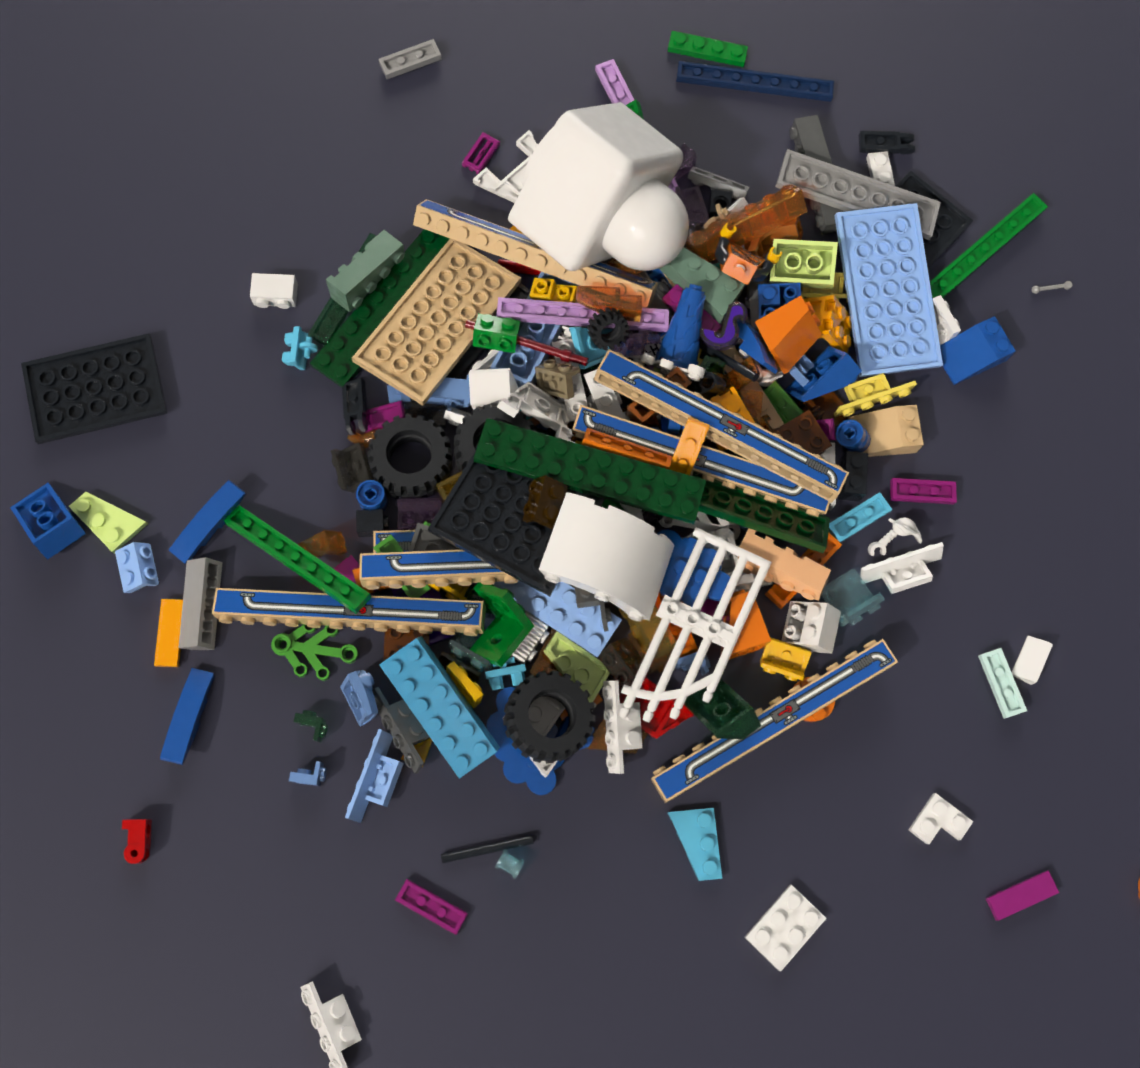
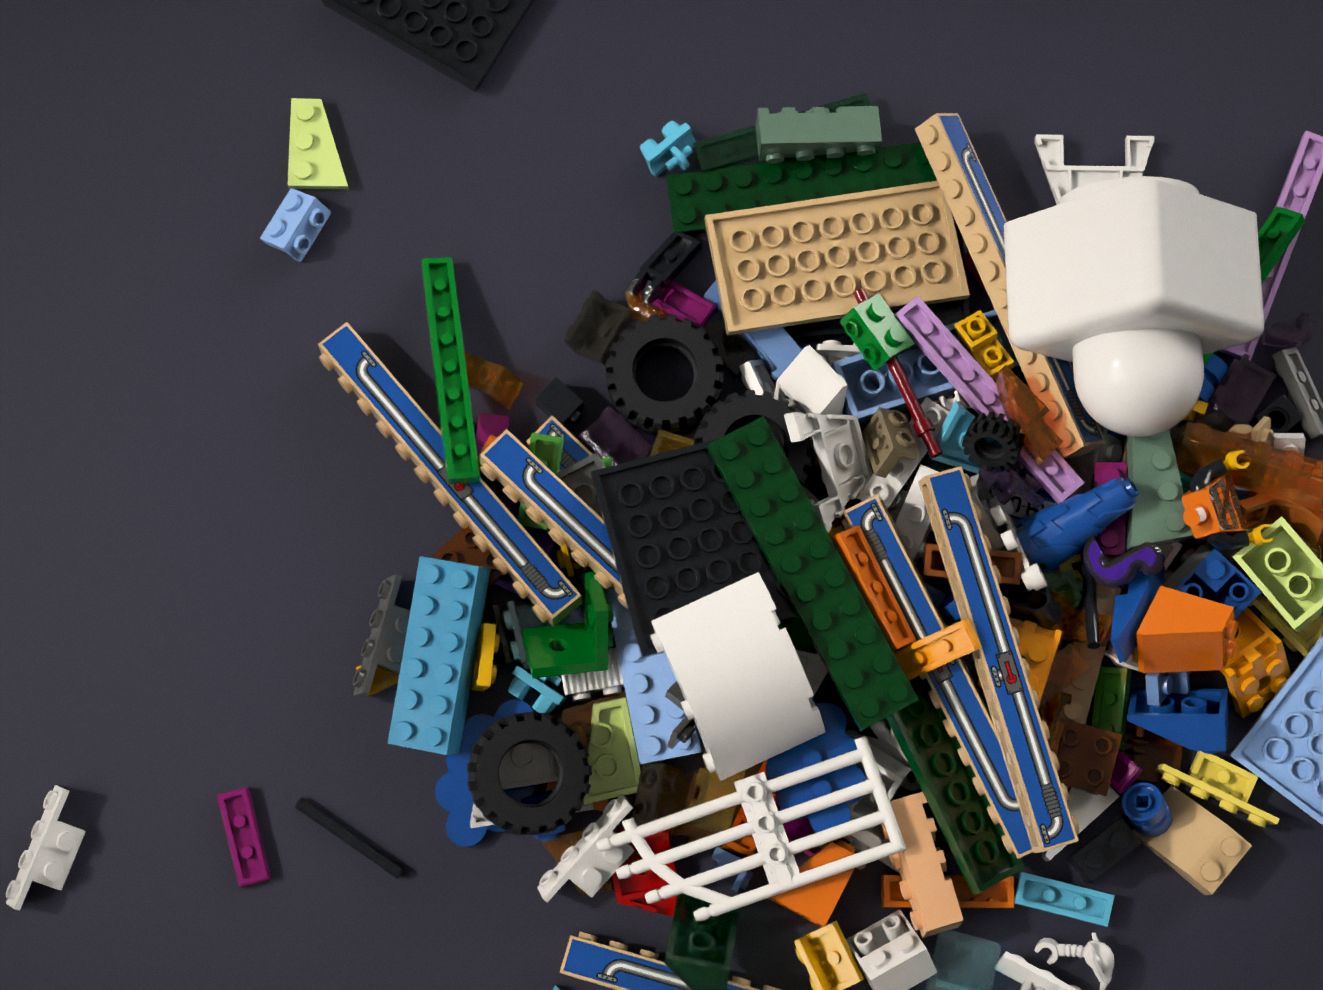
camera: 55 degrees right, 5 degrees up
(47, 521) = (257, 94): blue slope -> none
(138, 840) = (45, 495): red leg -> none
(167, 644) = (264, 322): light orange tile -> none
(186, 716) = (200, 421): blue slope -> none
(197, 620) = (297, 338): light grey brick -> none
(207, 521) = (405, 244): blue slope -> none
(273, 290) = (705, 62): white brick -> none
(304, 776) = (249, 592): medium blue bracket -> none
(309, 719) = (308, 539): clear green bracket -> none
(311, 648) = (377, 472): bright green plant -> none
(359, 695) = (376, 567): medium blue slope -> none
(371, 495) = (586, 377): blue wheel -> none
(377, 778) = (314, 662): light blue bracket -> none
(473, 166) = (1081, 123): magenta tile -> none
(510, 864) = (354, 874): clear light blue bush -> none
(544, 501) = (731, 558): dark brown bracket -> none
(923, 491) = (1164, 942): magenta plate -> none

